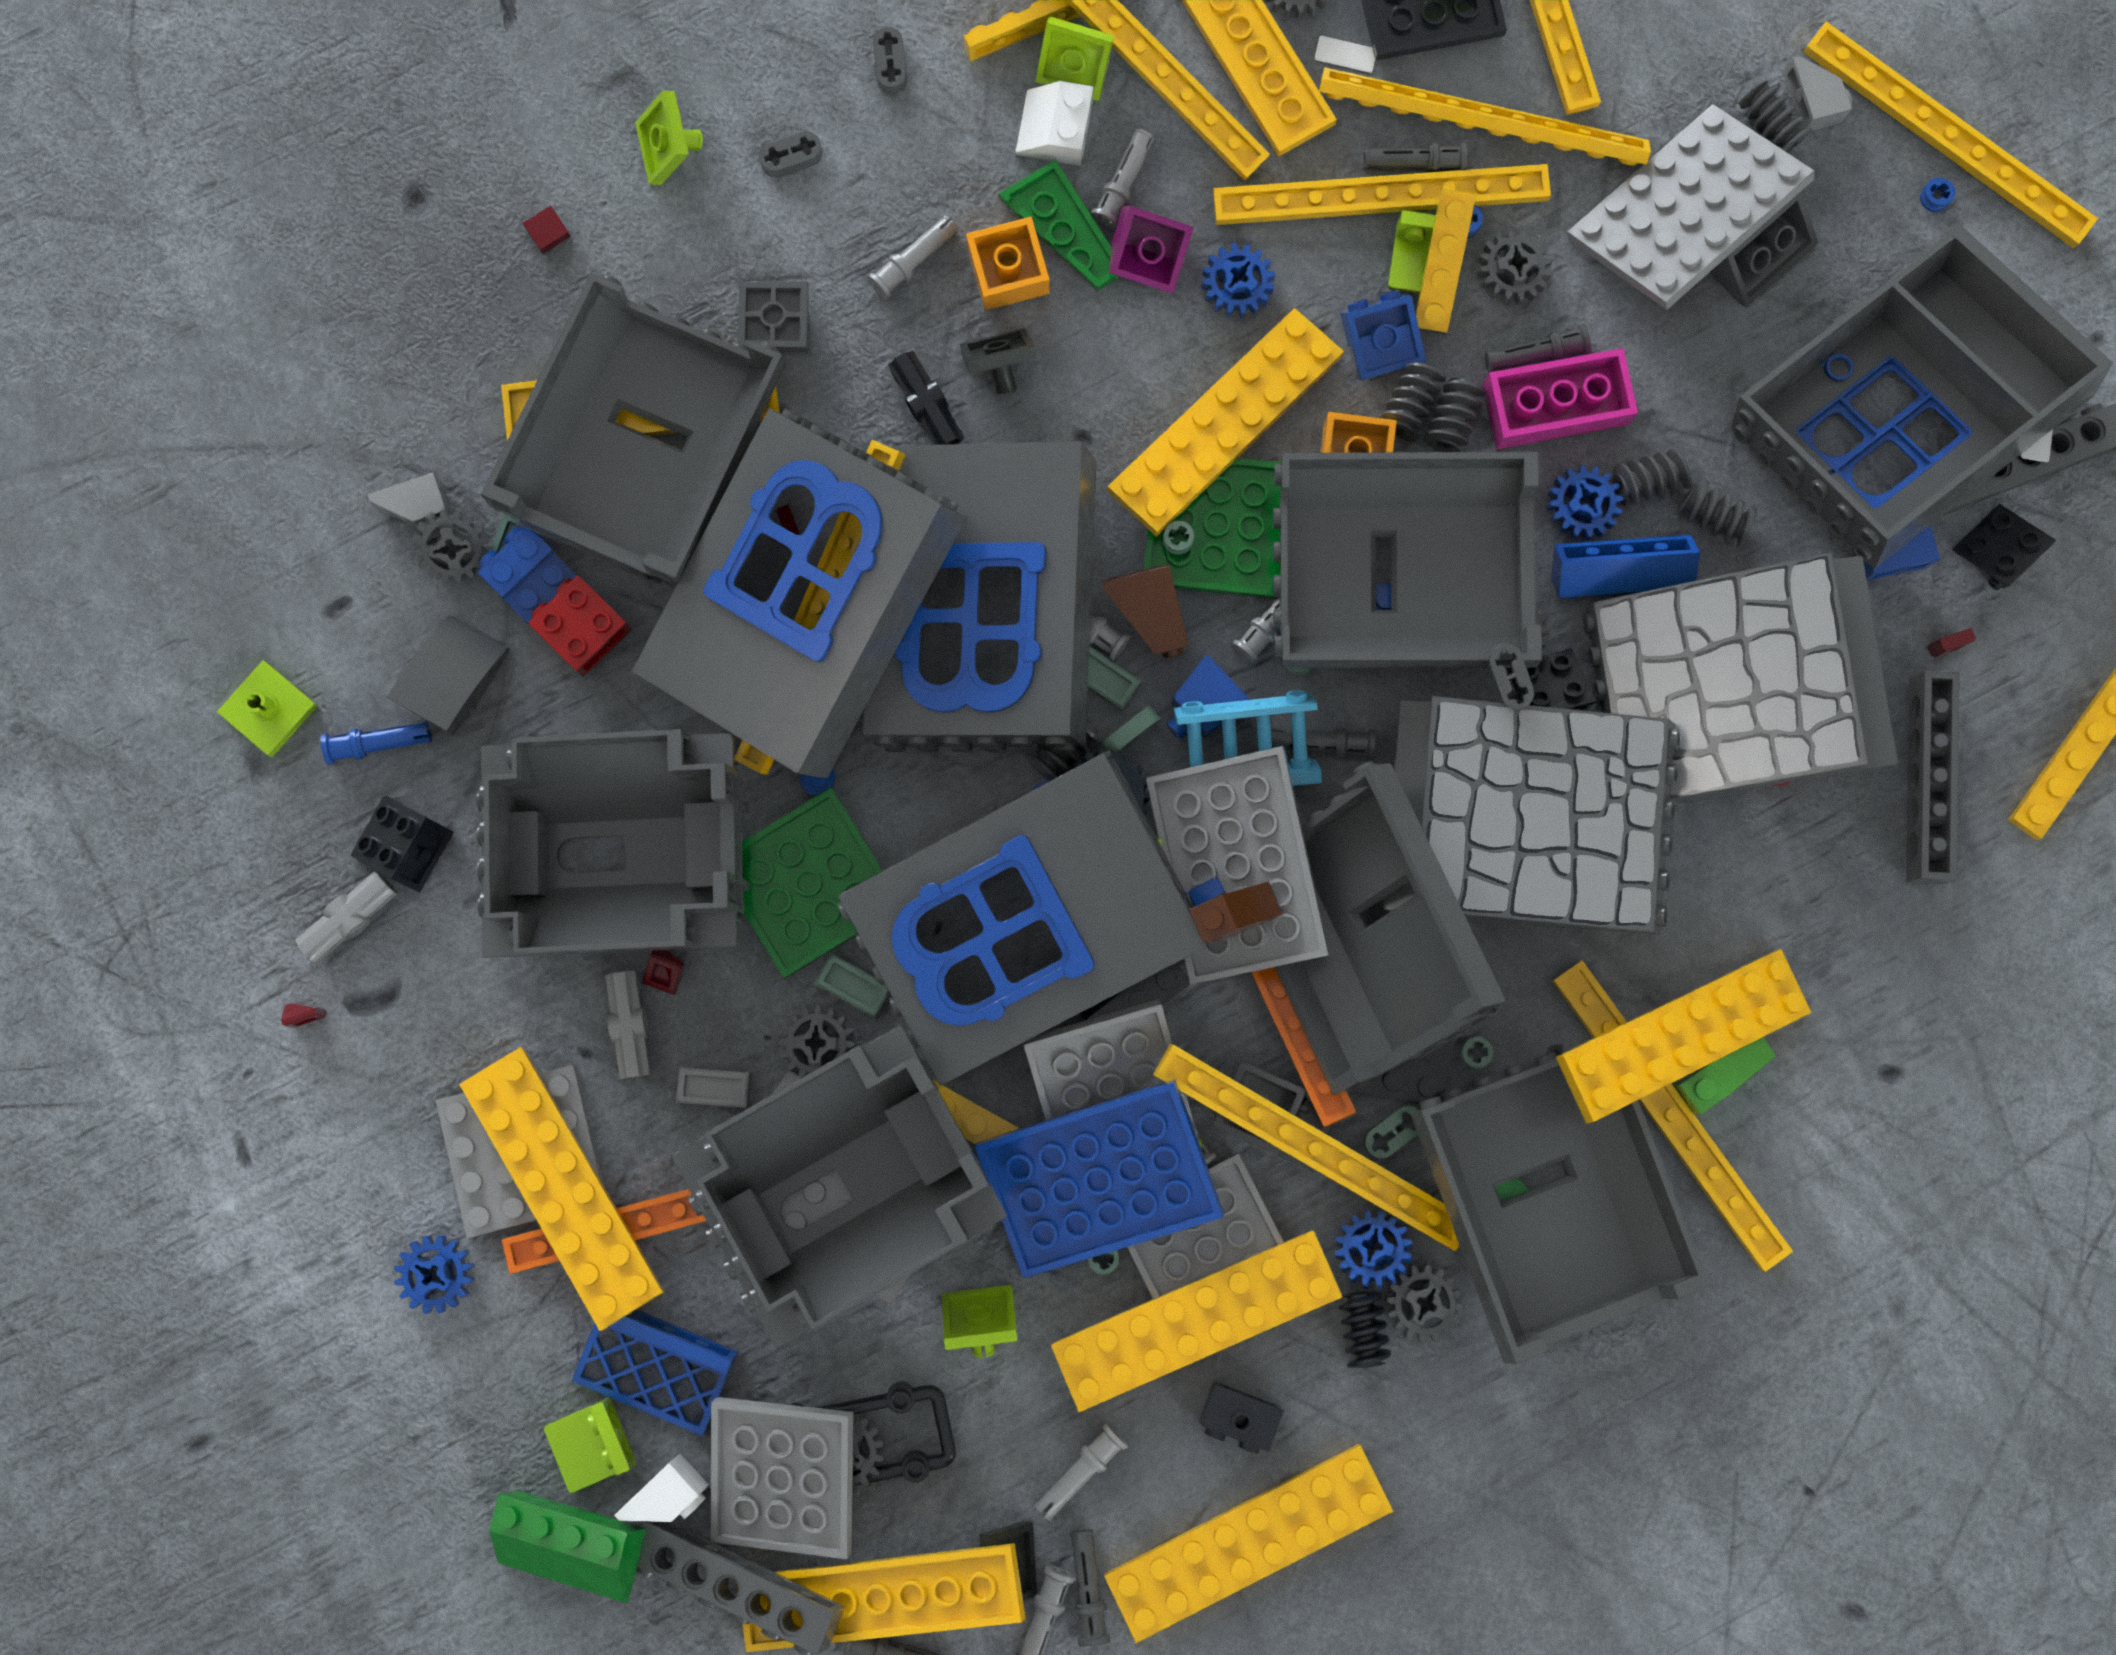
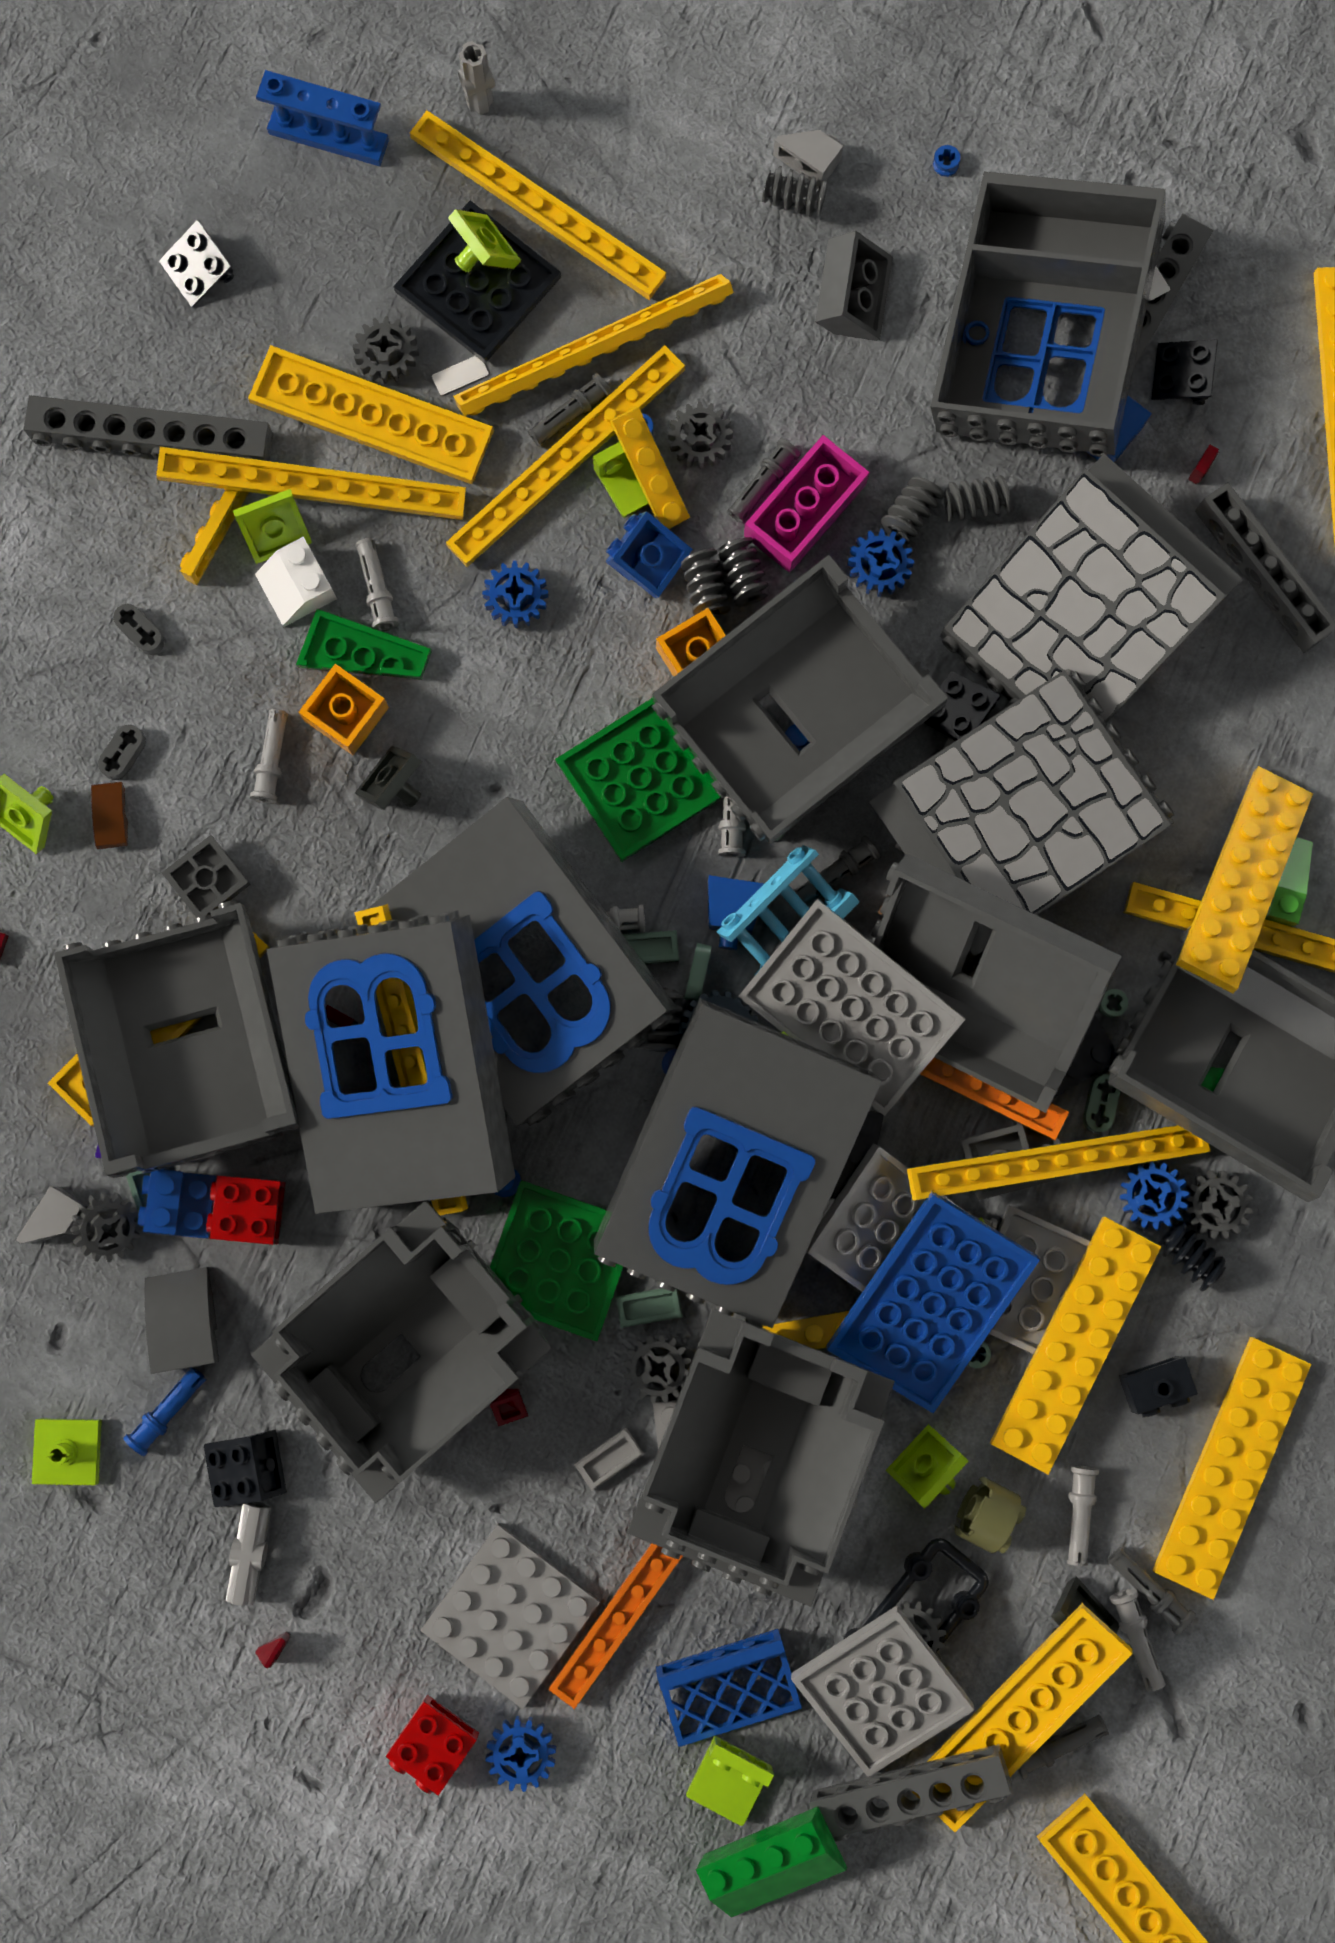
camera: 40 degrees left, 0 degrees up
(365, 1204) = (432, 1746): none -> red brick
(561, 1188) = (562, 1618): yellow plate -> none
(628, 1025) = (514, 1464): light grey piece -> none
(670, 1493) = (812, 1771): white slope -> none
(735, 199) = (109, 815): none -> reddish brown slope
(925, 400) = (364, 853): black piece -> none
(998, 1405) = (989, 1516): none -> olive brick
(1149, 248) = (435, 621): magenta slope -> none
(1151, 607) = (642, 873): reddish brown slope -> none
(1173, 528) = (630, 813): sand green bush -> none
(1206, 891) = (846, 1043): blue piece -> none
(1225, 422) = (587, 702): yellow plate -> none
(1235, 912) = (880, 1041): reddish brown slope -> none
(1518, 672) = (939, 719): dark grey beam -> none
(1623, 565) = (944, 585): blue brick -> none
(1690, 206) = (787, 299): light grey plate -> none
(1950, 135) = (921, 112): yellow plate -> none

